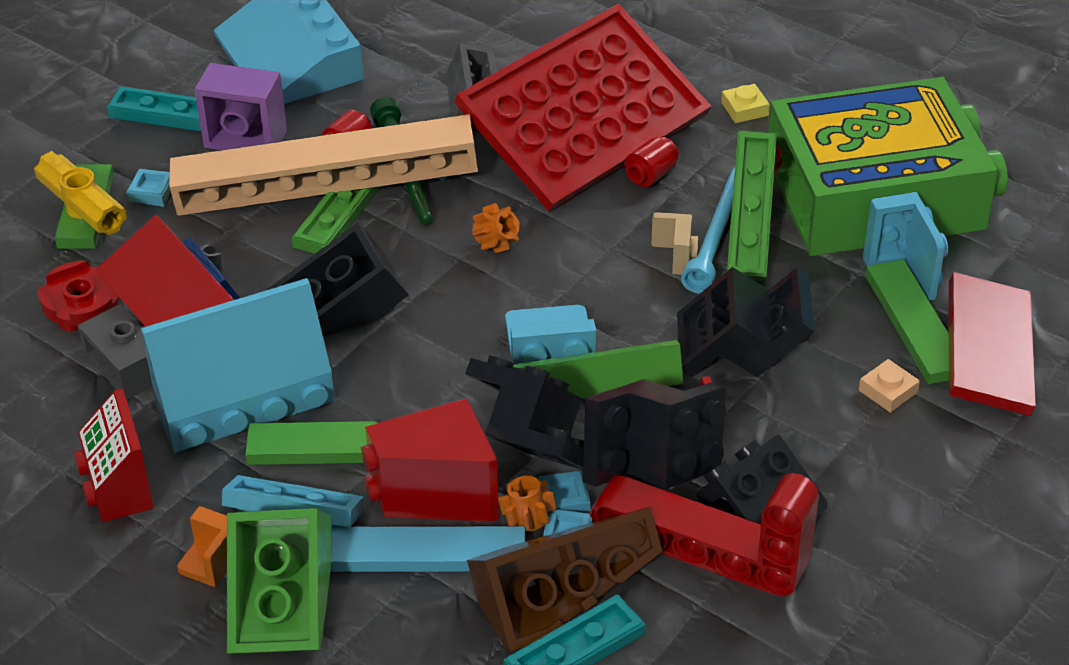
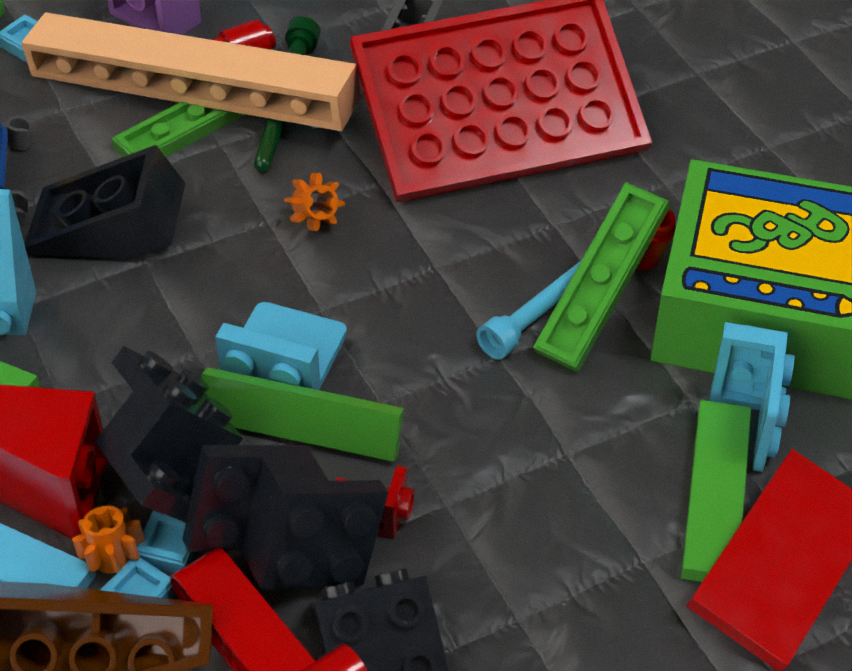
camera: 25 degrees right, 5 degrees up
(651, 161) = (539, 183): red brick -> none
(674, 232) = (503, 281): tan bracket -> none
(745, 103) = (697, 145): light yellow plate -> none
(745, 322) = (499, 417): black bracket -> none
(889, 385) = (628, 561): light nougat plate -> none

